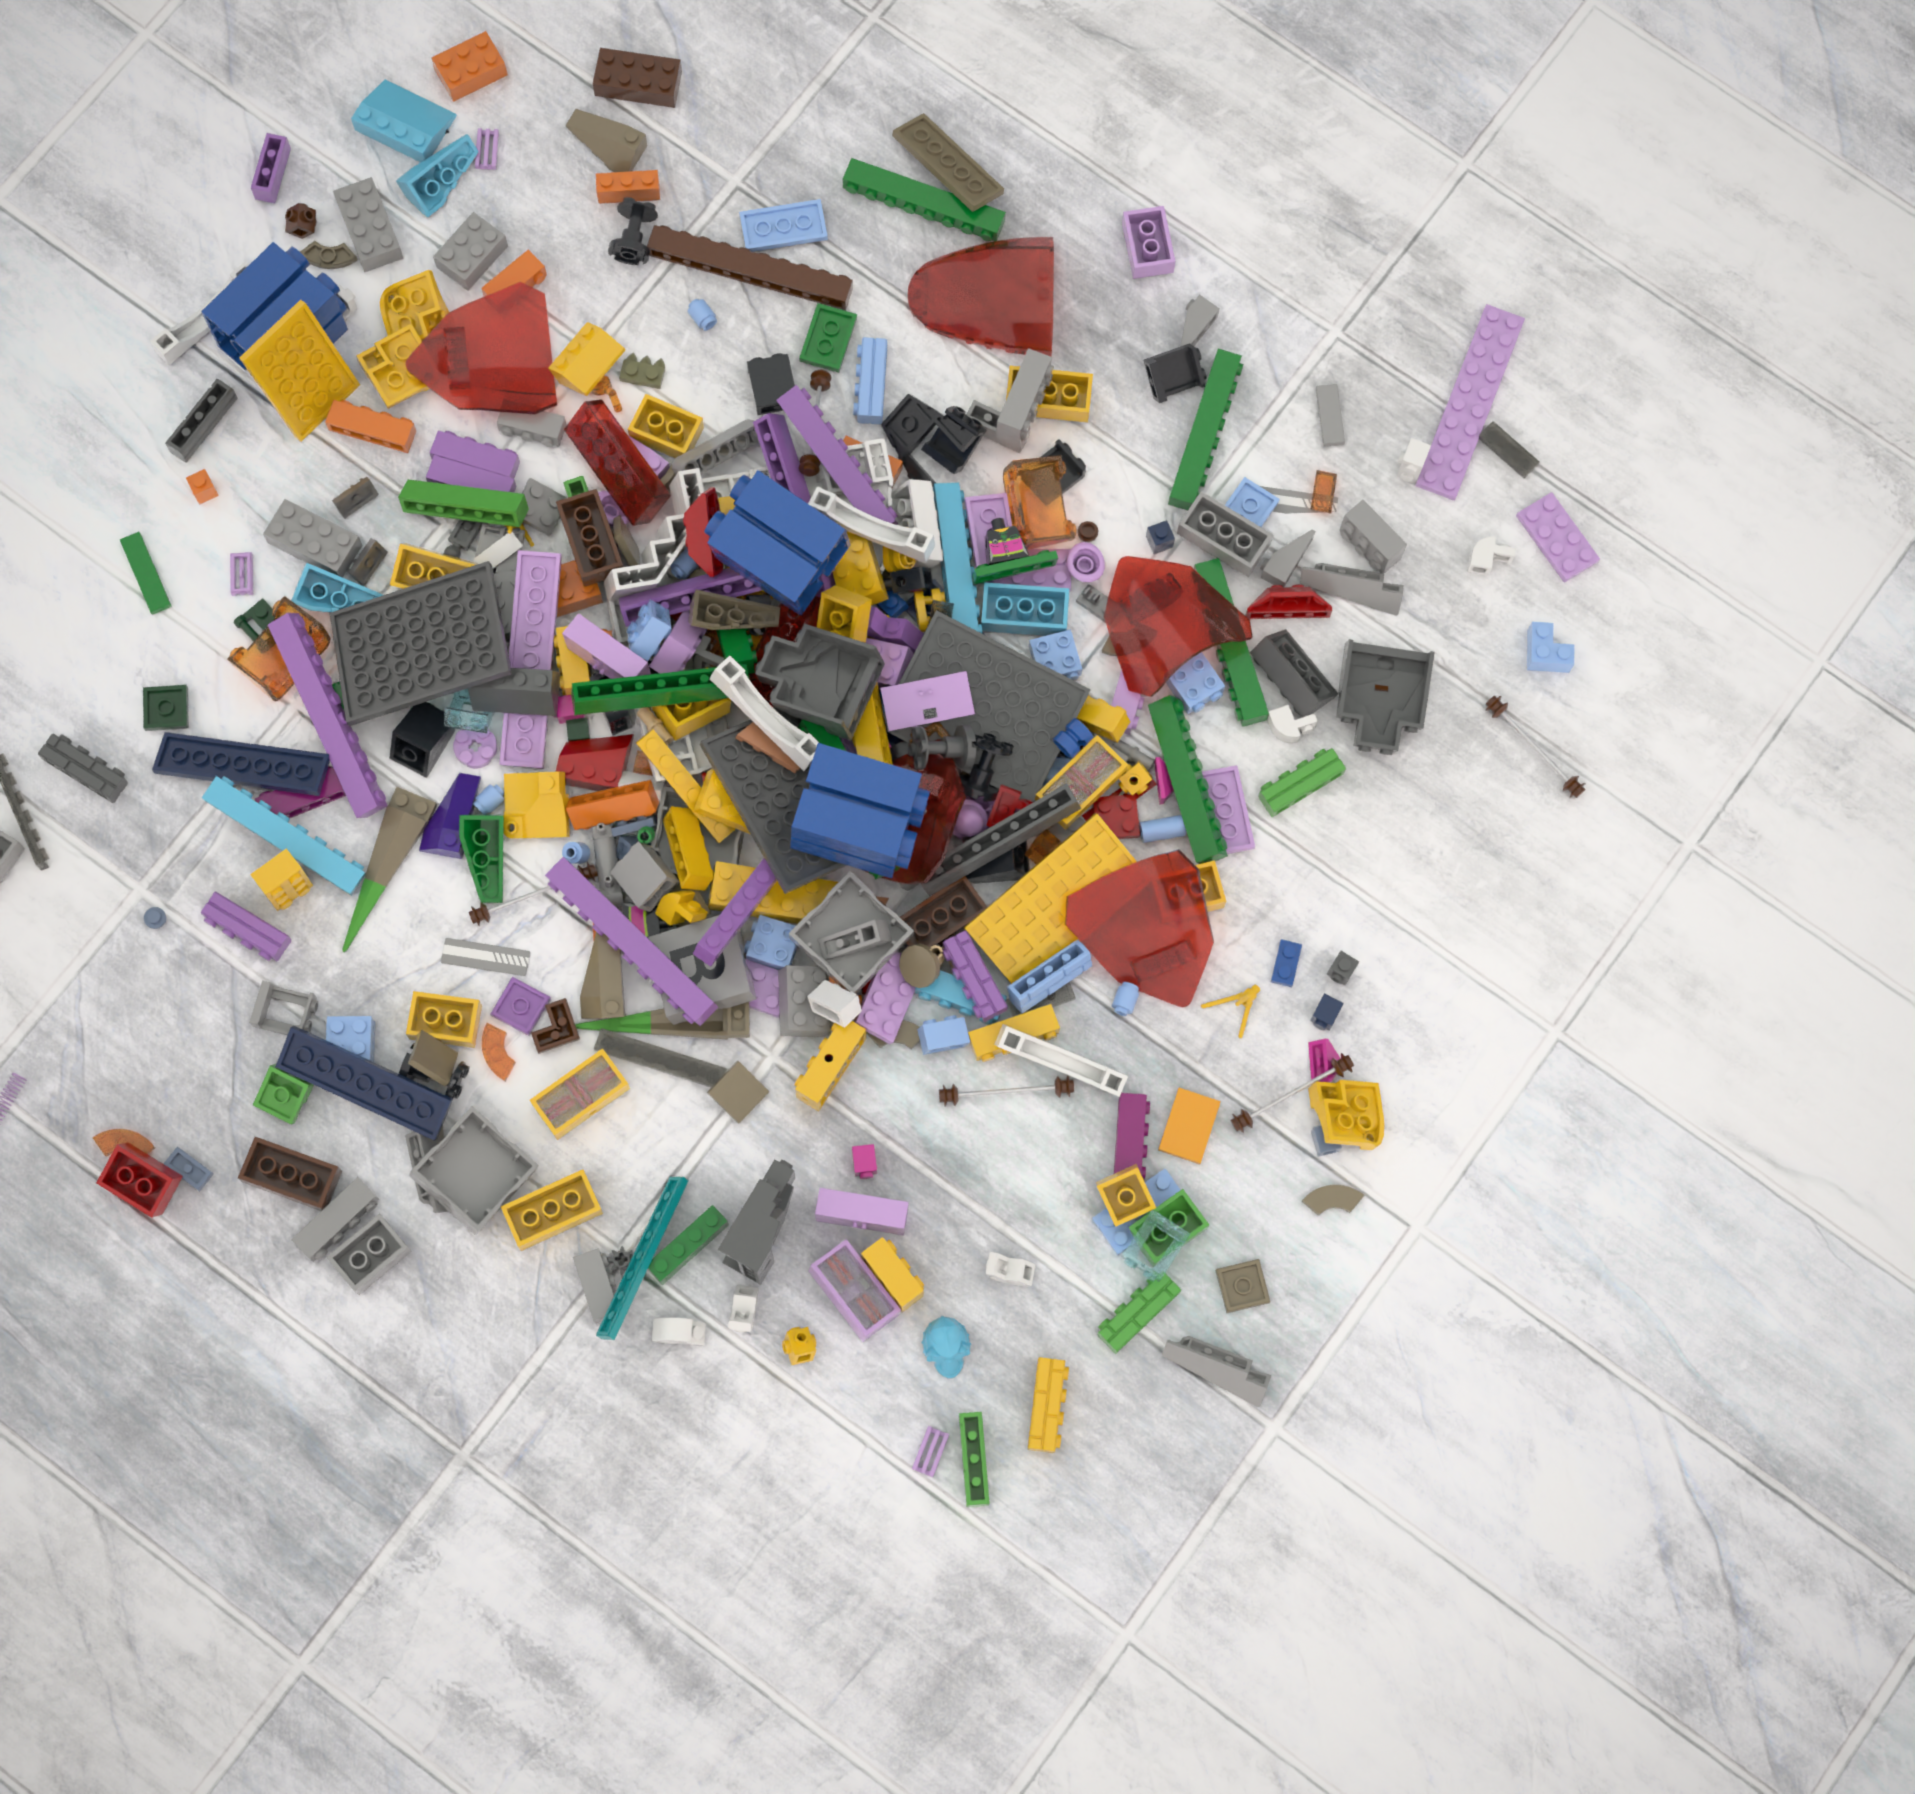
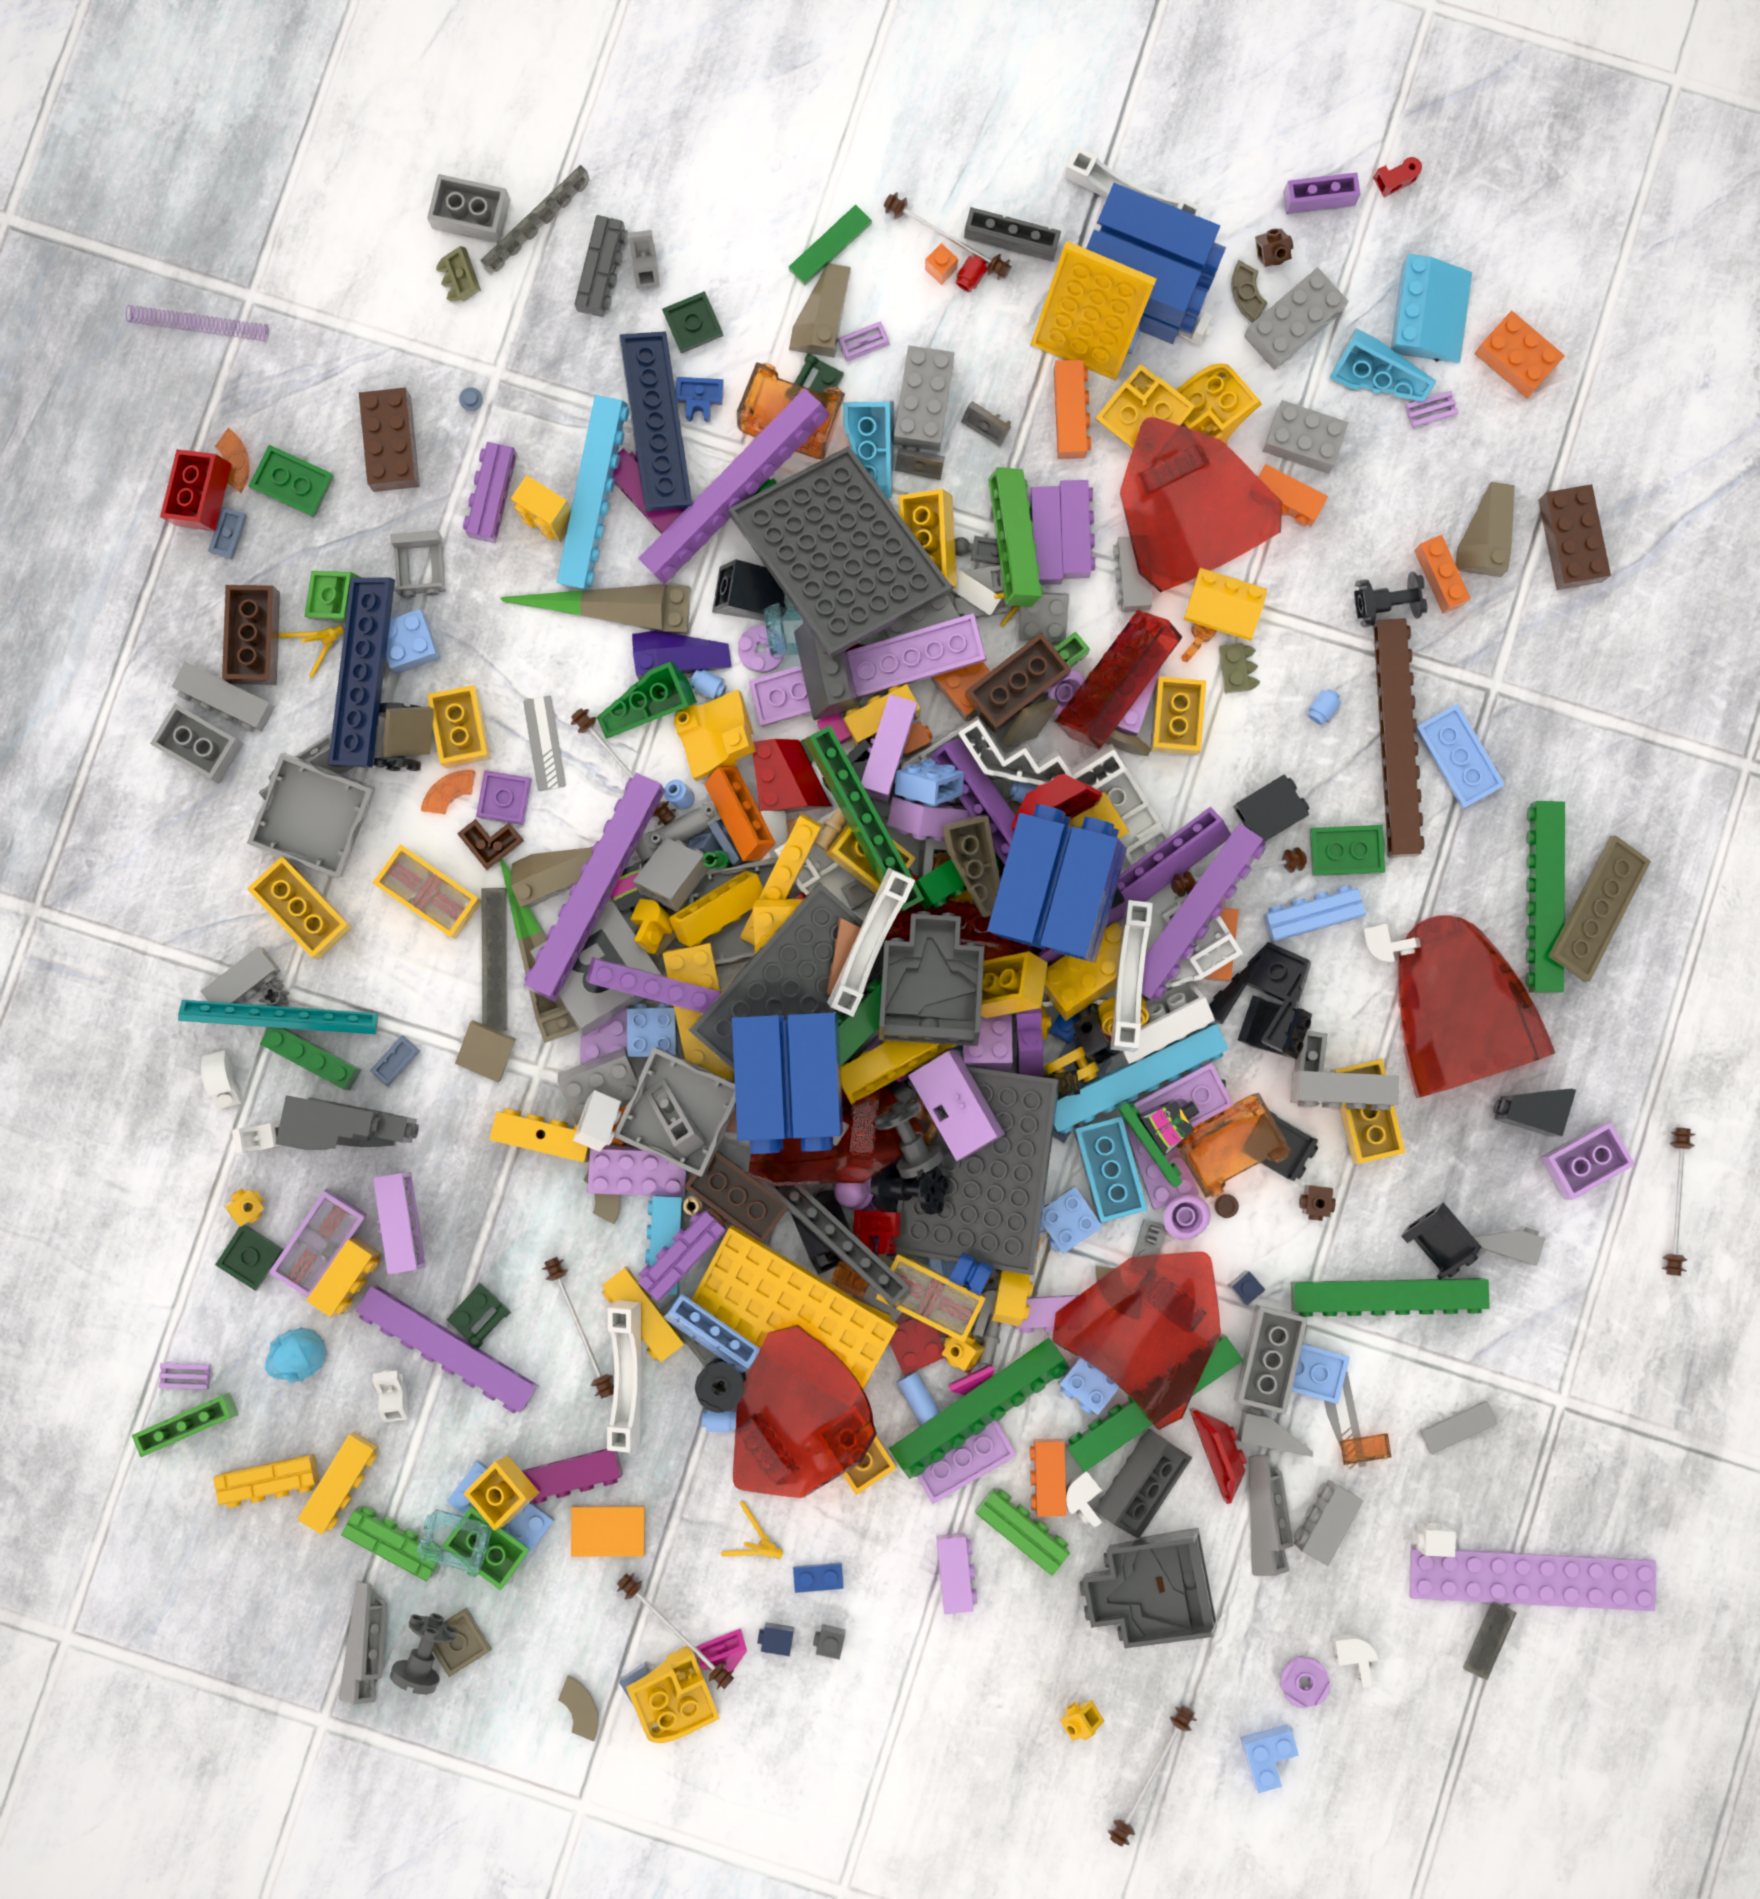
camera: 75 degrees right, 10 degrees up
(39, 889) = (459, 275): none -> olive plate
(94, 729) = (644, 259): none -> light grey brick
(138, 504) = (899, 207): none -> reddish brown axle
(162, 998) = (389, 439): none -> reddish brown brick
(164, 1097) = (291, 481): none -> green plate
(205, 599) = (820, 319): none -> dark tan wedge
(220, 466) = (971, 273): none -> red brick
(233, 722) = (699, 395): none -> blue plate
(282, 110) = (1398, 177): none -> red leg
(317, 1113) = (325, 636): none -> yellow plant
(710, 449) = (1170, 778): light grey beam -> none
(717, 1174) = (395, 1060): none -> sand blue plate
(845, 1358) = (249, 1257): none -> dark green plate
(864, 1161) = (456, 1206): dark pink brick -> none
(917, 336) = (1383, 946): none -> white brick
(919, 965) = (672, 1194): dark tan tile -> none
(943, 1035) = (614, 1242): light blue brick -> none
(959, 1178) = (473, 1309): none -> dark green plate
(984, 1210) = (446, 1348): none -> medium lavender brick
(1070, 1342) = (338, 1482): none -> yellow brick
(1096, 265) = (1537, 1111): none -> black slope
(1096, 981) = (714, 1396): none -> black piece
(1109, 458) = (1308, 1202): none -> reddish brown brick
(1247, 1316) = (417, 1670): none -> dark grey piece
(1251, 206) = (1674, 1261): none -> axle
(1264, 746) = (1048, 1477): none -> orange brick
(1319, 847) = (956, 1573): none -> lavender brick
(1472, 786) = (1081, 1720): none -> yellow brick
(1492, 613) = (1305, 1696): none -> lavender plate
(1558, 537) = (1406, 1726): lavender plate -> none

